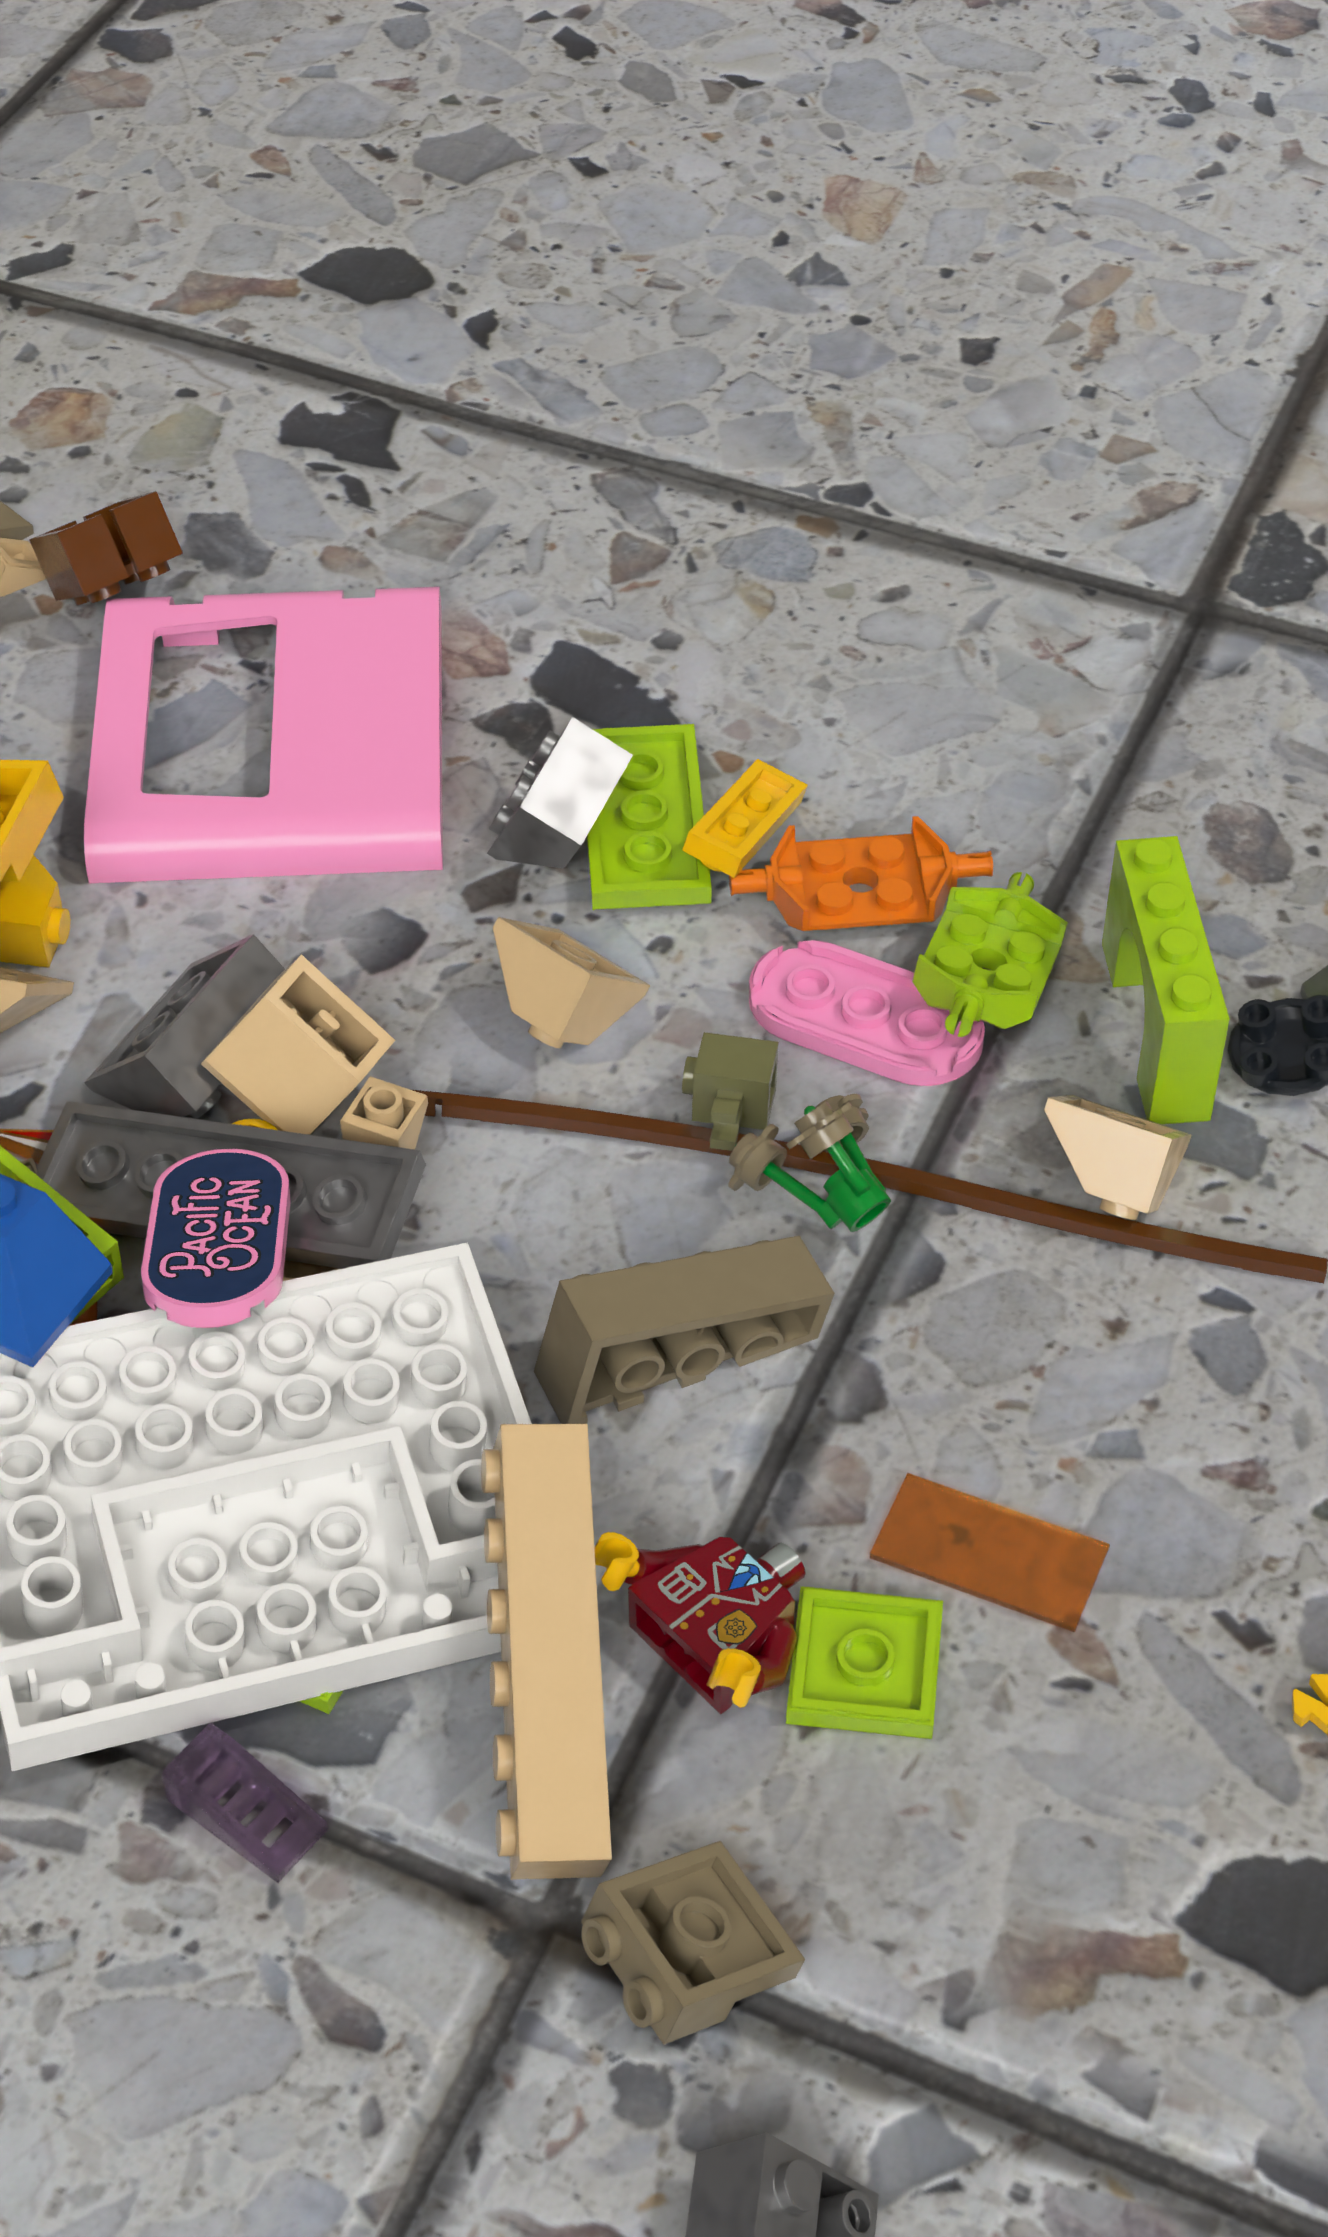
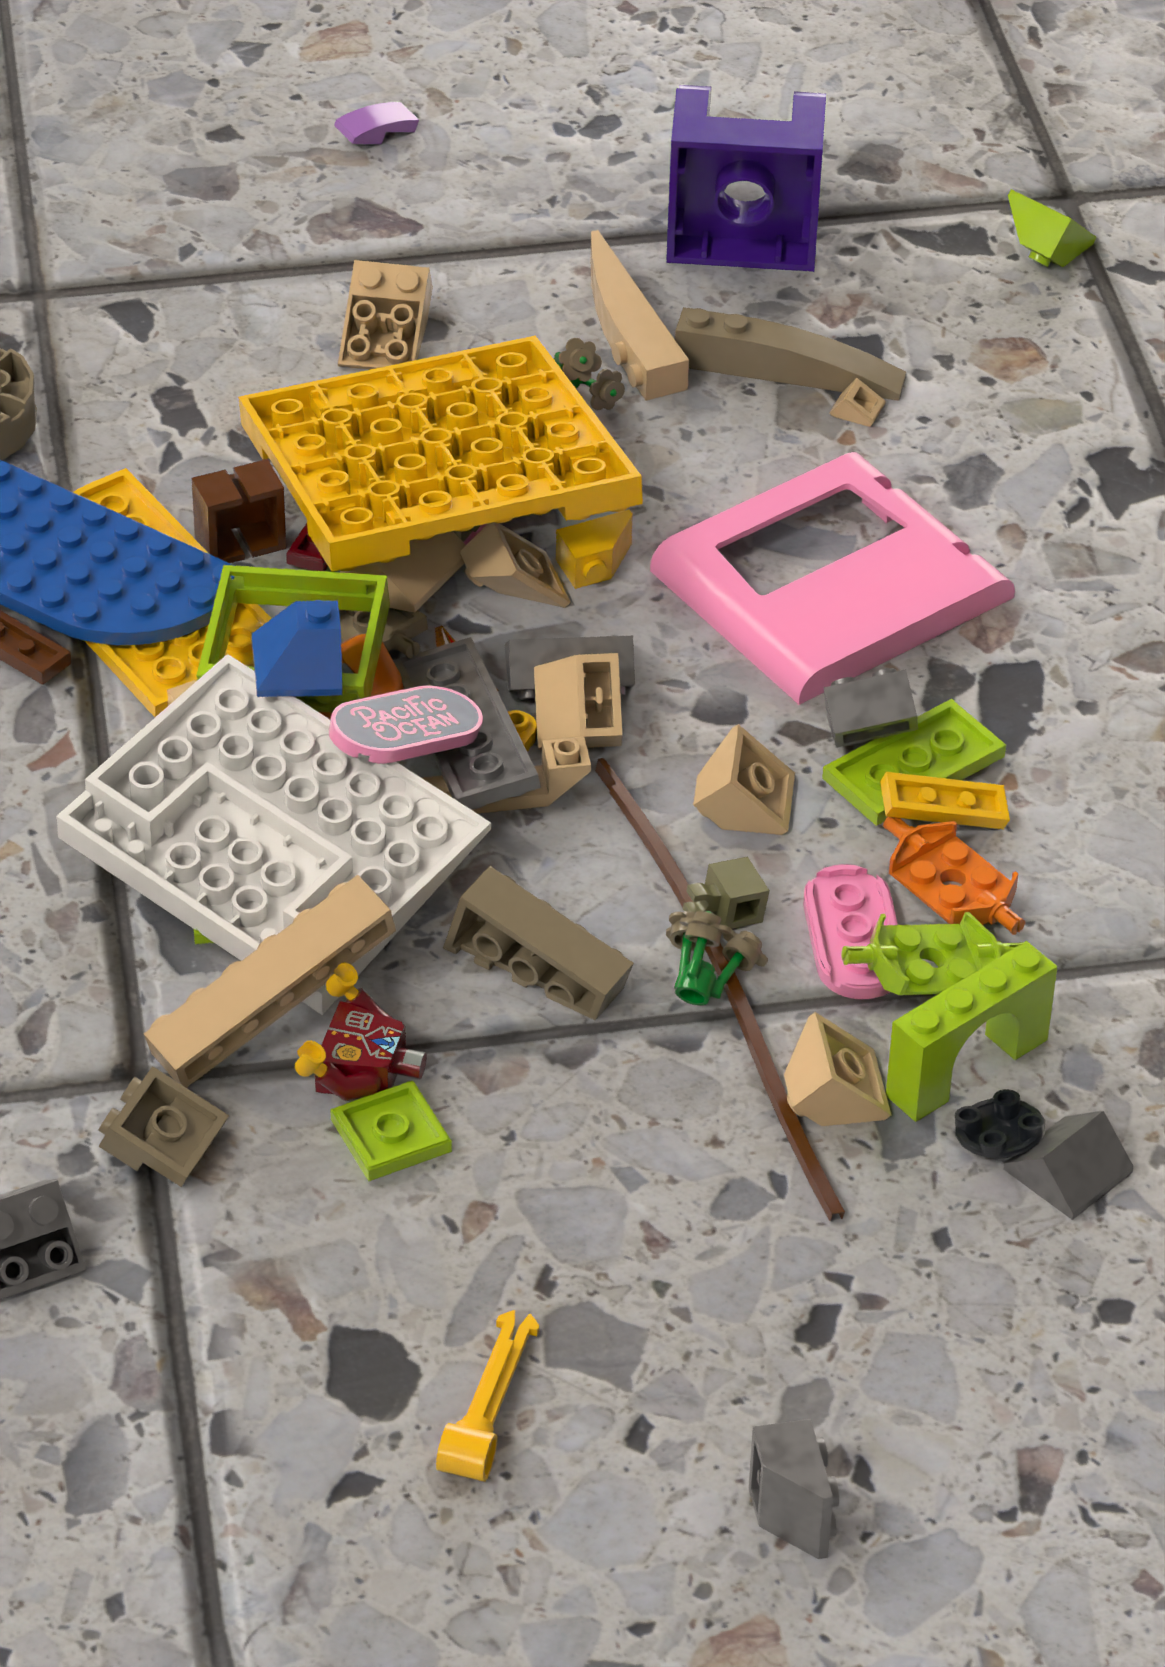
camera: 55 degrees right, 5 degrees down
(110, 545) = (881, 424): reddish brown piece -> none
(209, 1770) = (113, 906): clear purple slope -> none
(990, 1552) = (508, 1153): clear orange piece -> none

